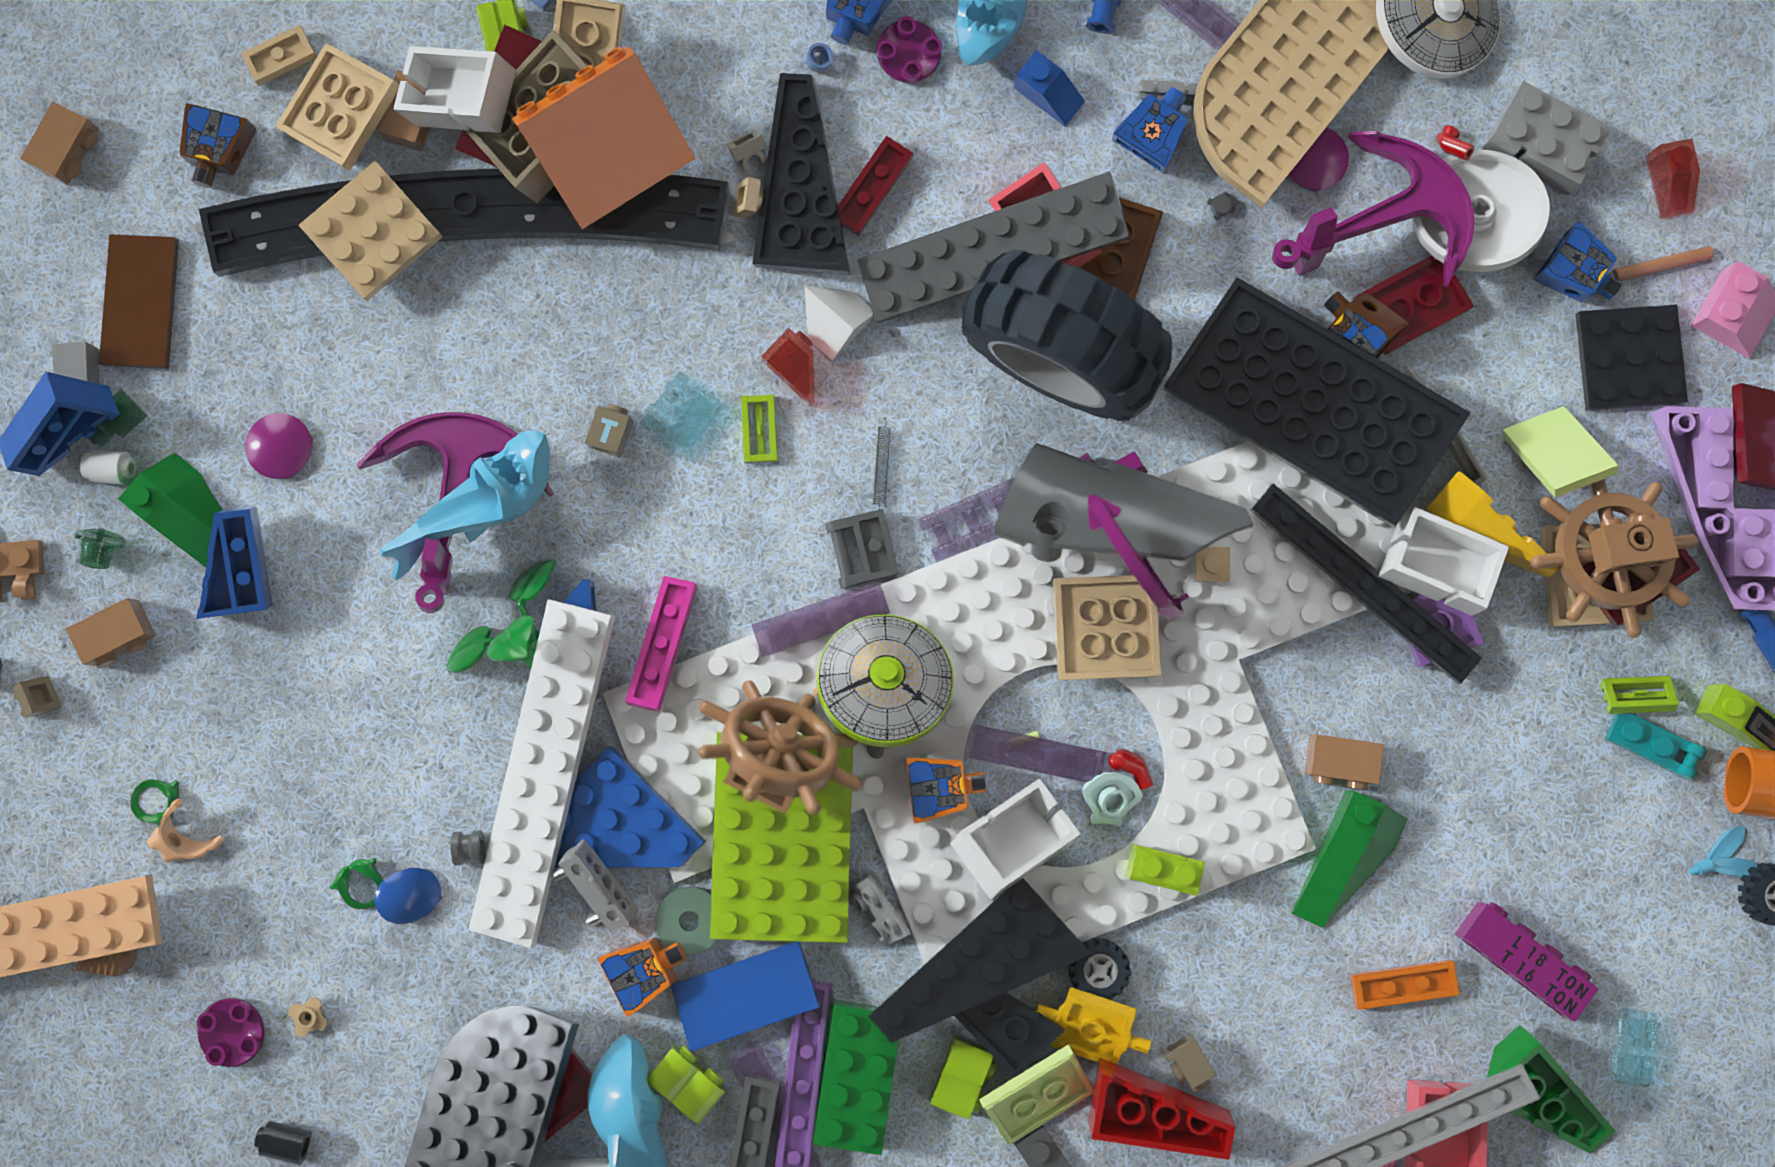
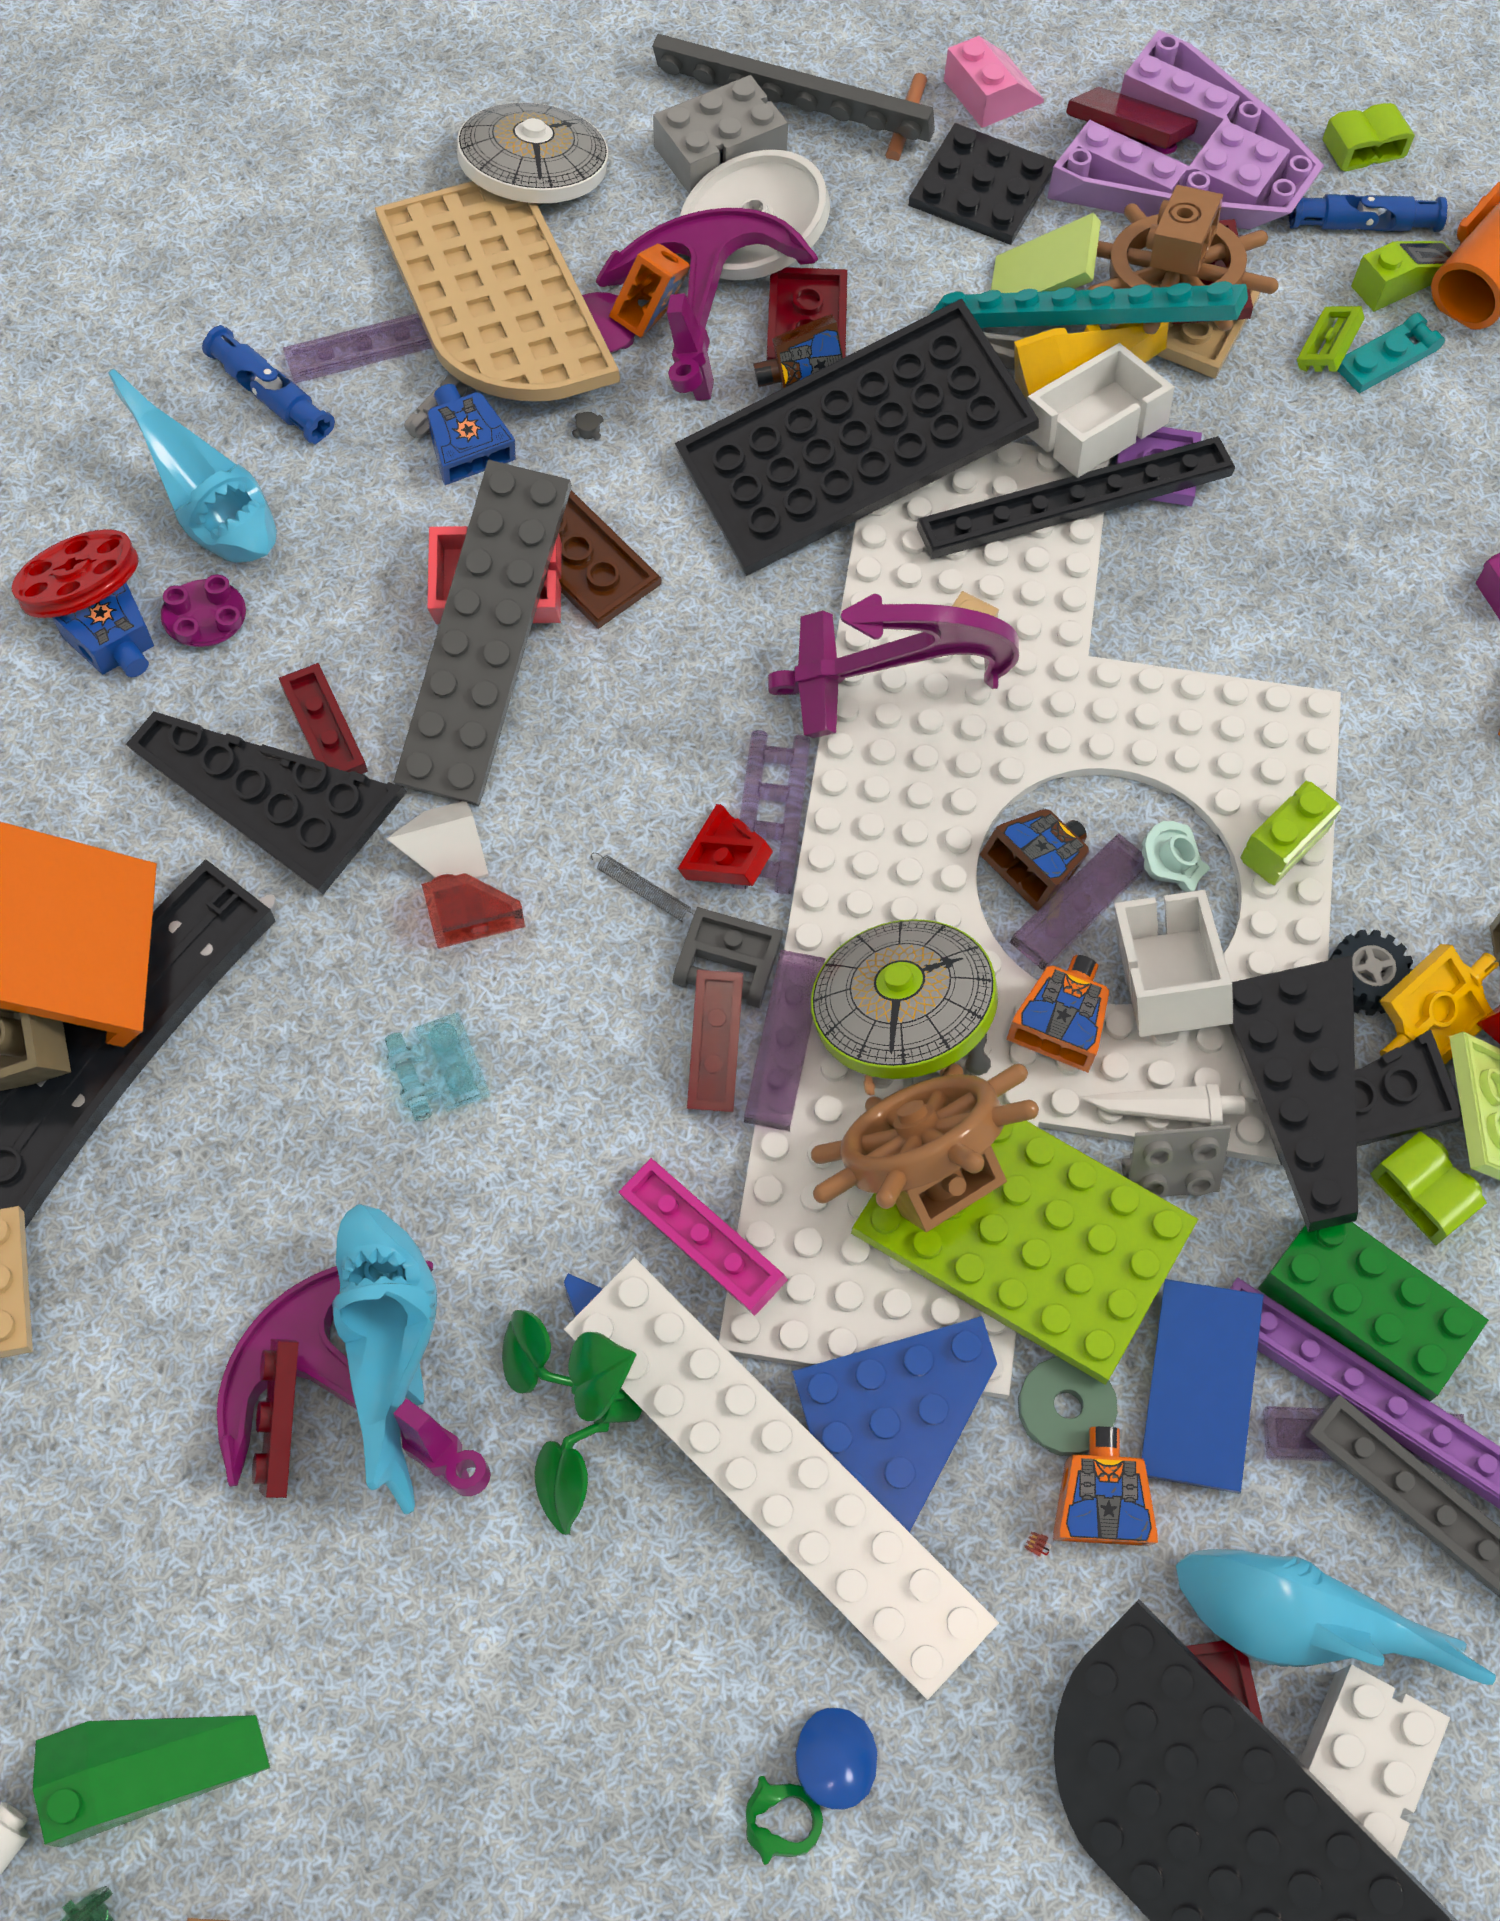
camera: 60 degrees left, 20 degrees down
(235, 567) = (249, 1728): blue wedge -> none
(278, 446) = (129, 1587): magenta dish -> none
(407, 465) = (276, 1418): none -> dark red plate
(467, 848) = (818, 1635): dark grey wheel -> none
(597, 887) = (964, 1485): light grey piece -> none
(597, 945) = (1037, 1544): none -> clear red piece
(609, 430) = (401, 1154): dark tan brick -> none
(687, 1083) = (1283, 1520): lime brick -> none
(747, 146) = (181, 823): dark tan tile -> none
(748, 198) = (238, 853): tan plate -> none
(758, 400) = (546, 1011): lime tile -> none
(794, 576) = (715, 1040): none -> dark red hinge
(825, 57) = (140, 699): medium blue hinge -> none
(924, 894) = (1189, 1104): none -> white bar
(934, 504) = (725, 852): none -> red wing
(1048, 88) = (346, 504): blue slope -> none
(1053, 709) = (1037, 854): none -> torso
(1067, 335) = (637, 581): black wheel -> none
(1105, 628) = (978, 749): tan plate -> none
(1132, 763) = (1148, 815): red arm -> none
(1157, 516) = (835, 676): dark grey panel -> none
(1343, 759) = (1256, 614): medium nougat brick -> none
(1351, 851) = (1360, 664): green wedge -> none
(1374, 178) = (653, 278): none -> orange torso
(1451, 145) = (668, 209): red arm -> none
(1528, 509) = (1104, 305): none -> teal plate
(1579, 266) = (864, 172): torso -> none
(1628, 178) = (797, 88): none -> dark grey plate
(1674, 177) = (829, 56): clear red slope -> none

